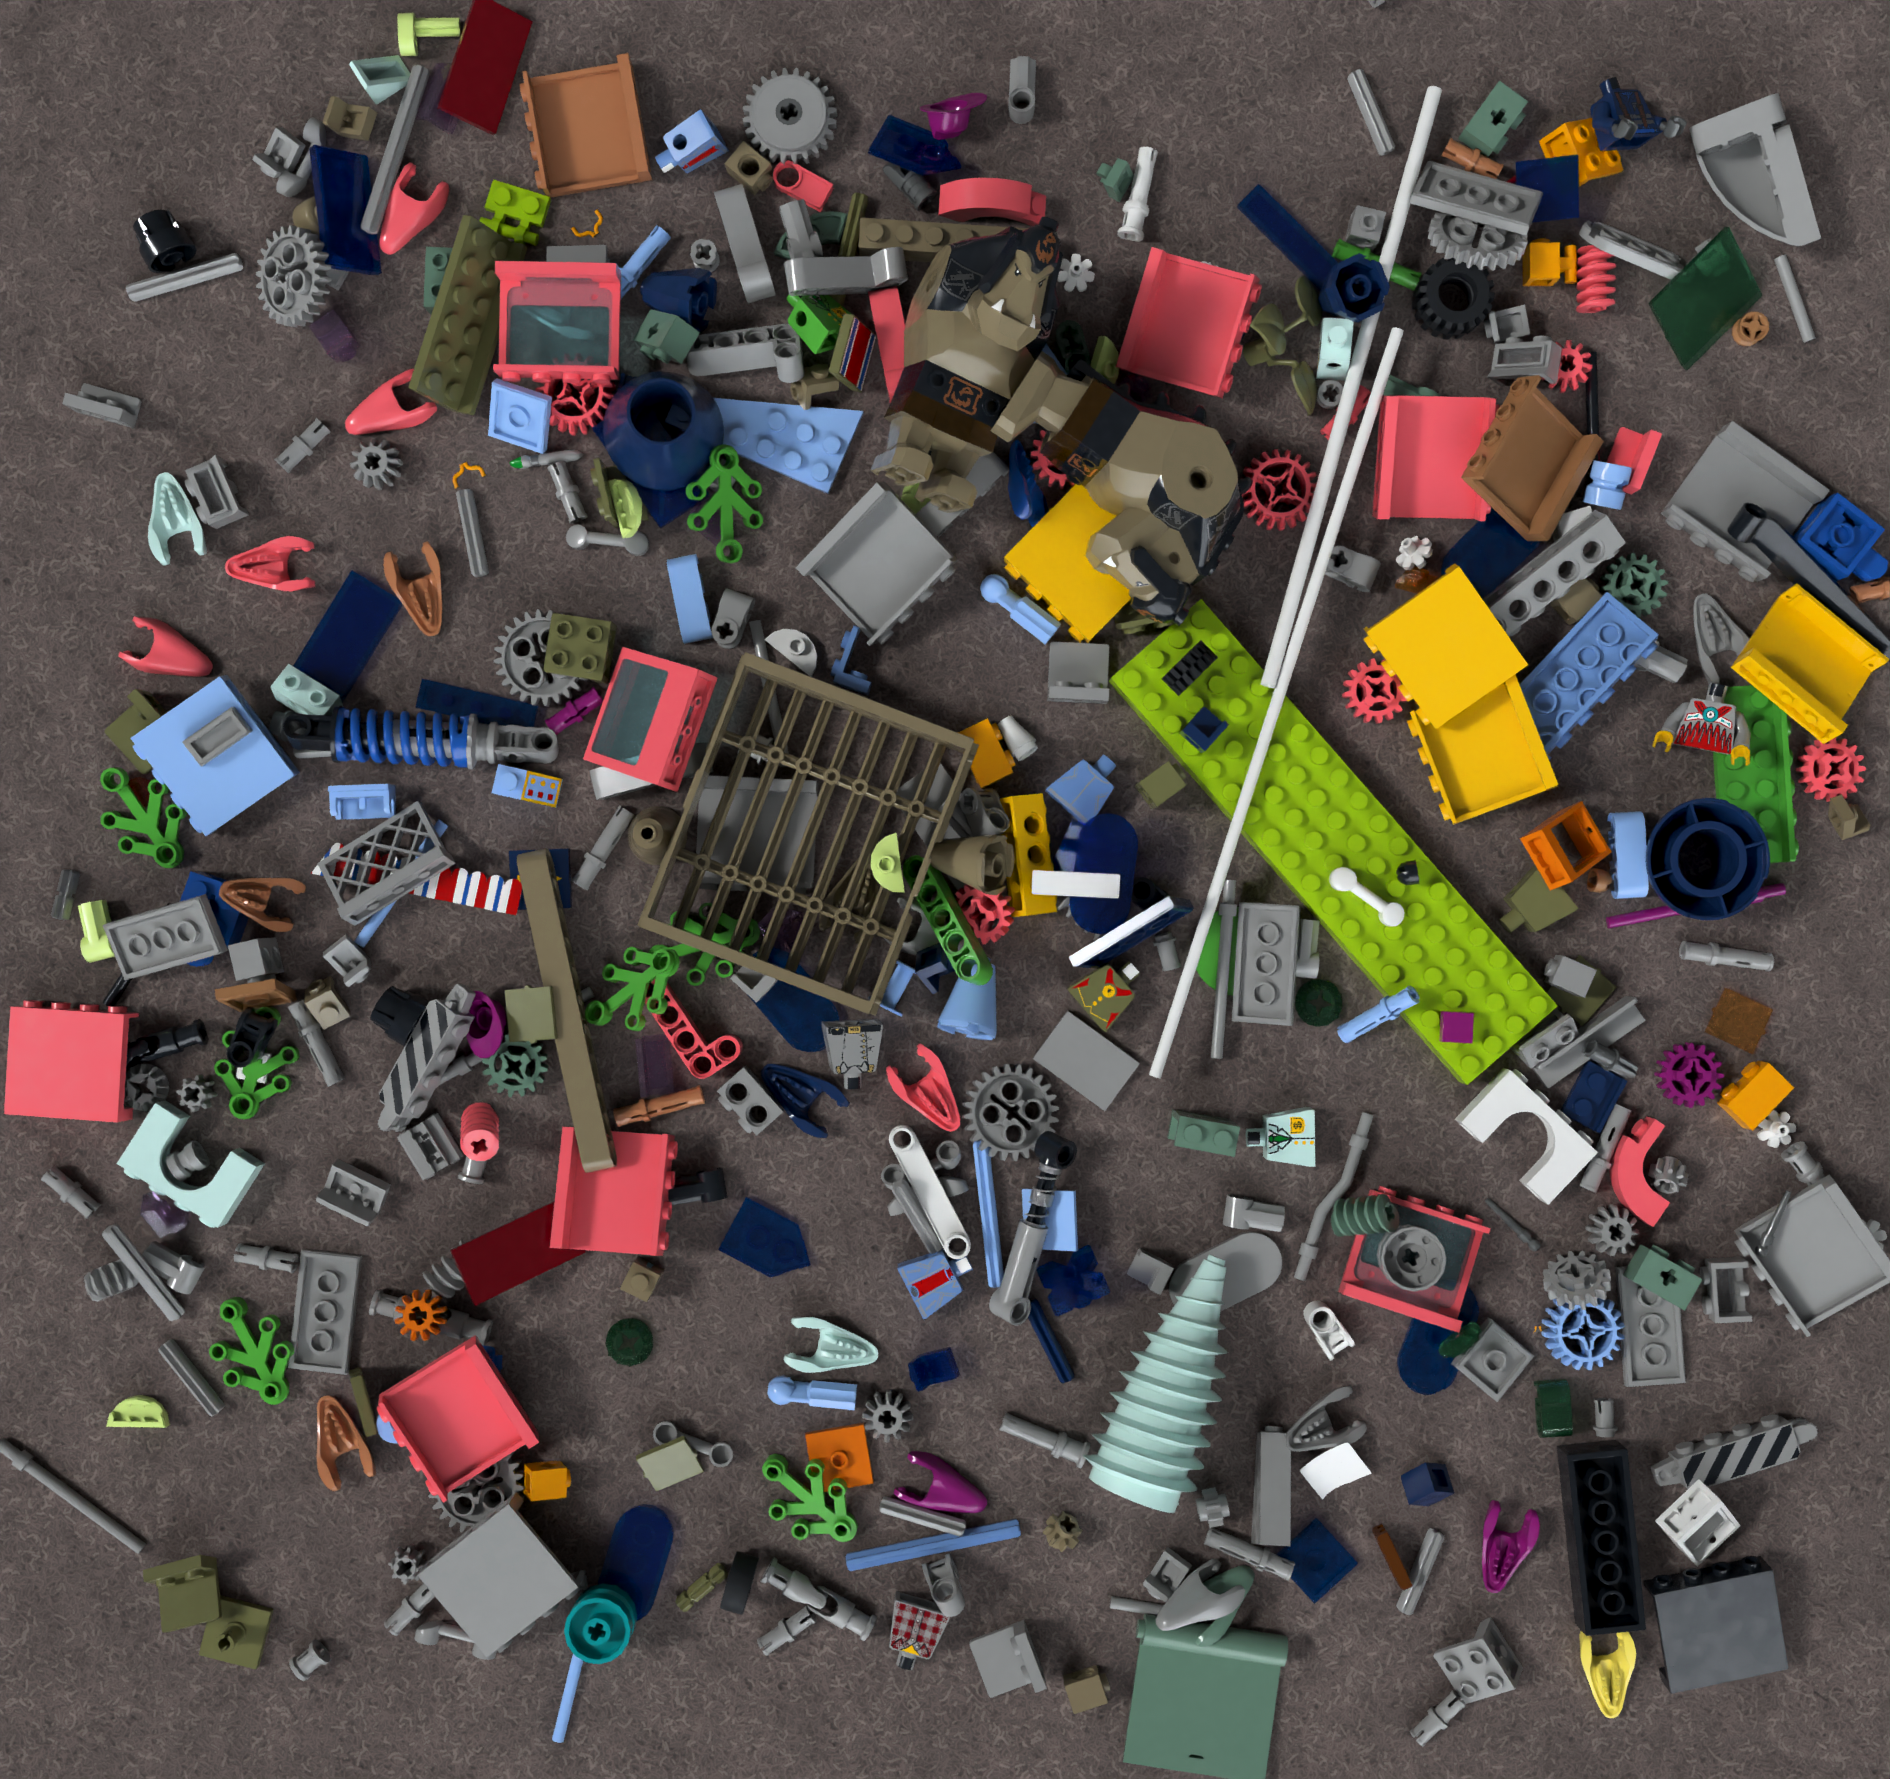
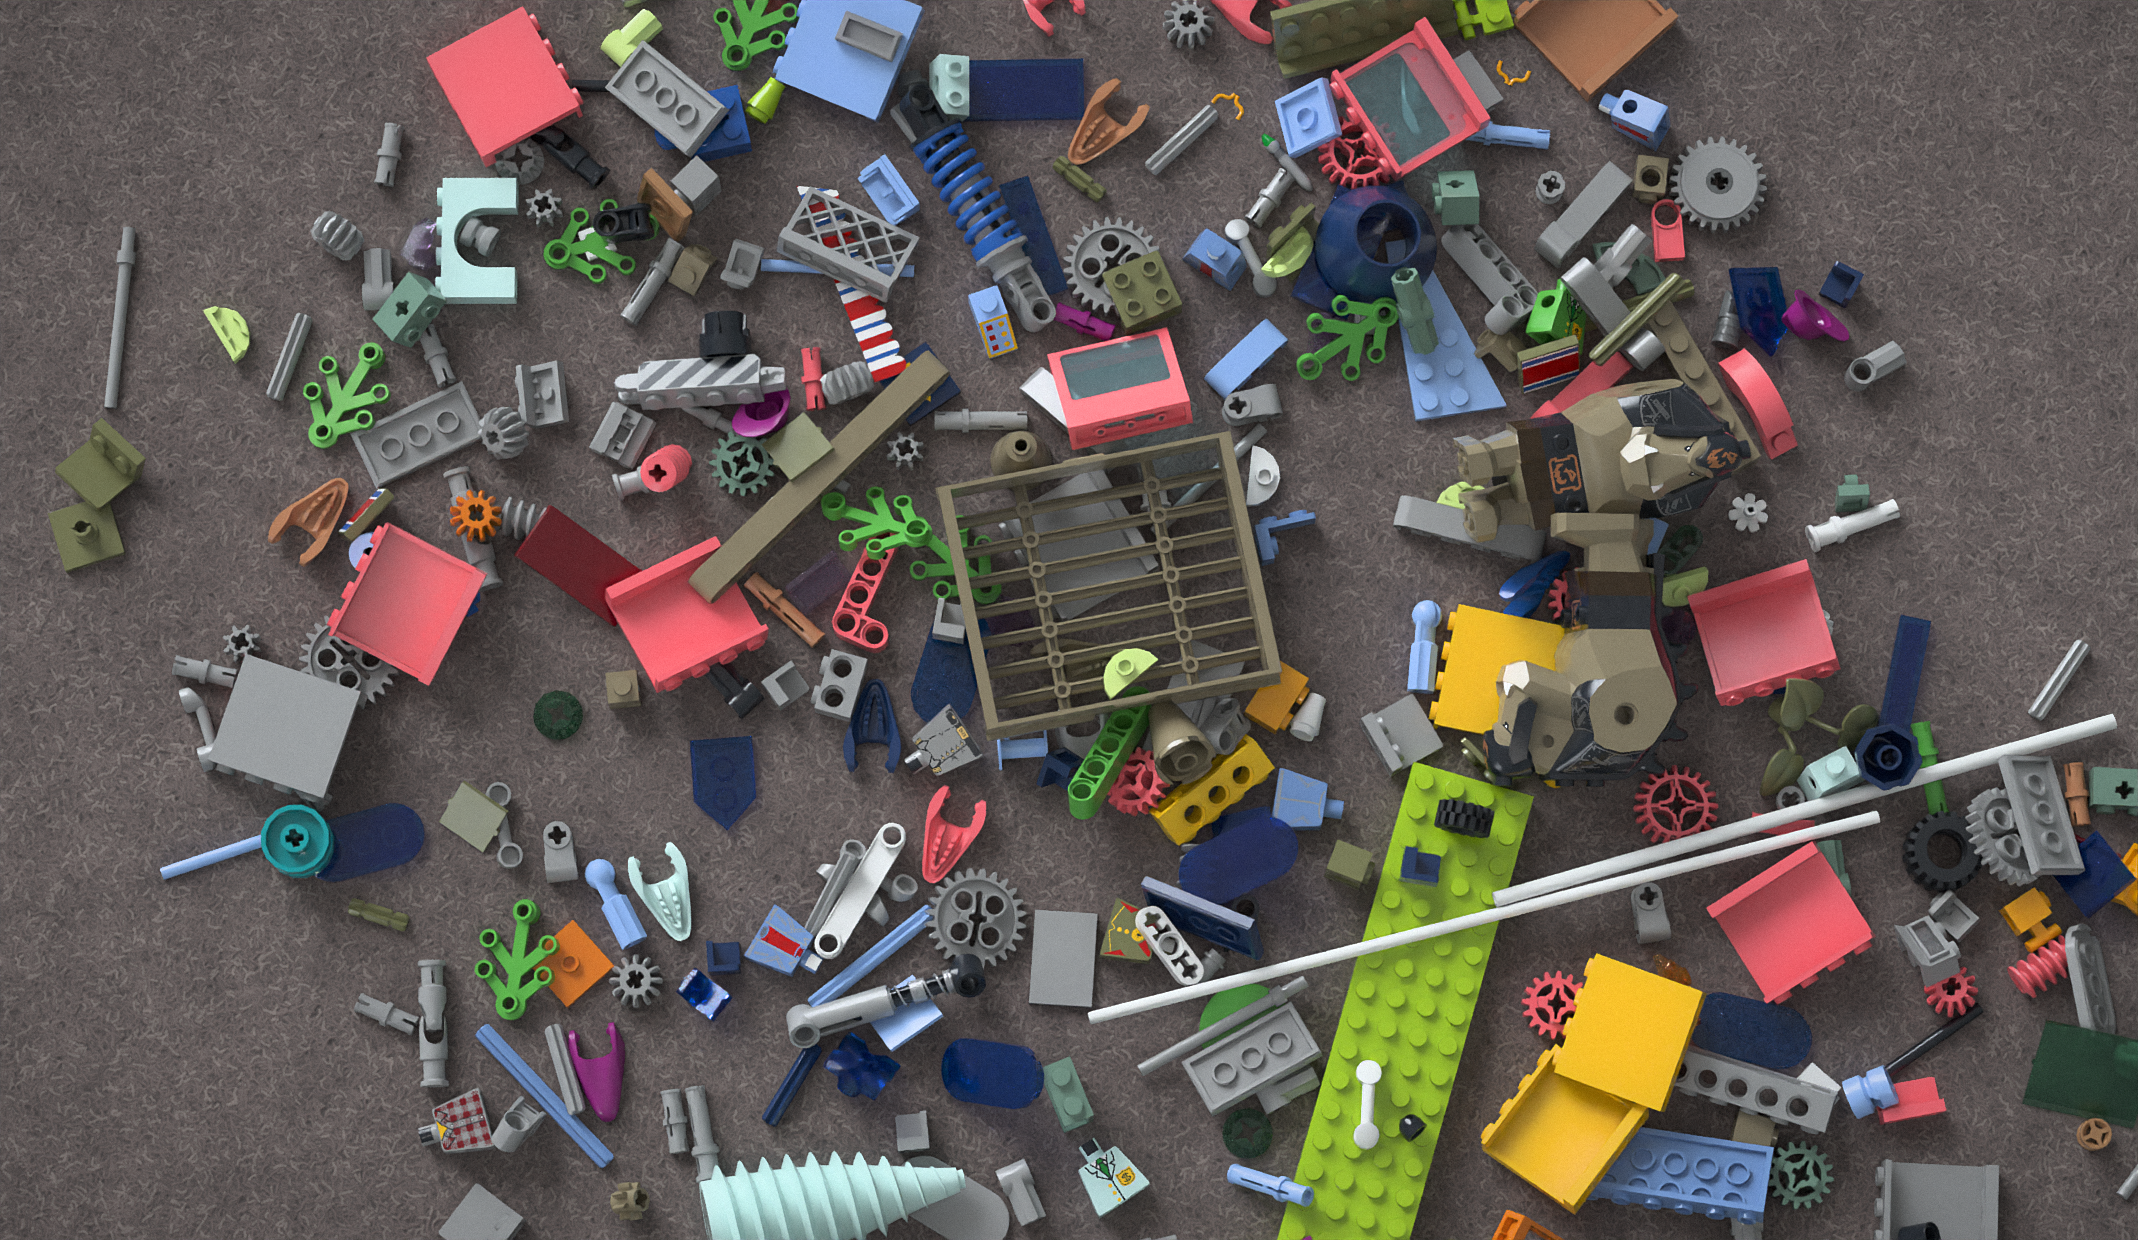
camera: 55 degrees right, 10 degrees down
(143, 1272) = (361, 258): light grey axle -> none
(212, 1259) = (409, 309): none -> sand green brick
(221, 854) = (765, 101): none -> lime cone
(252, 895) = (751, 148): nougat animal -> none
(309, 1660) = (102, 612): light grey bush -> none
(365, 1245) = (503, 433): none -> light grey gear
(451, 638) = (1079, 178): none -> olive axle
(481, 962) = (812, 377): none -> coral pin
(502, 938) = (847, 382): none -> light grey gear
(546, 1480) = (392, 717): light orange brick -> none
(581, 923) = (901, 443): none -> light grey gear
(590, 569) = (1216, 259): none -> medium blue torso
(681, 294) = (1502, 189): dark blue cone -> none
(722, 1145) = (785, 685): none -> light grey panel
(739, 432) = (1414, 310): none -> sand green piece
(739, 1583) = (407, 941): black tyre -> none
(746, 1414) = (559, 858): none -> light grey piece
(863, 254) = (1637, 319): none -> olive axle
(879, 563) = (1382, 500): light grey panel -> none
(913, 1334) = (723, 958): none -> dark blue panel
(937, 70) = (1841, 284): none -> dark blue panel
(971, 1009) = (1046, 825): light blue cone -> none
(1020, 1453) = (675, 1121): none -> light grey pin
(1075, 884) = (1213, 842): white sticker -> none
(1112, 966) = (1177, 968): none -> white beam
(1148, 1181) = (992, 1073): none -> clear blue tile
(1365, 227) = (1952, 736): light grey brick -> none
(1414, 552) = (1700, 961): white plant -> none
(1530, 461) = (1842, 1005): medium nougat panel -> none

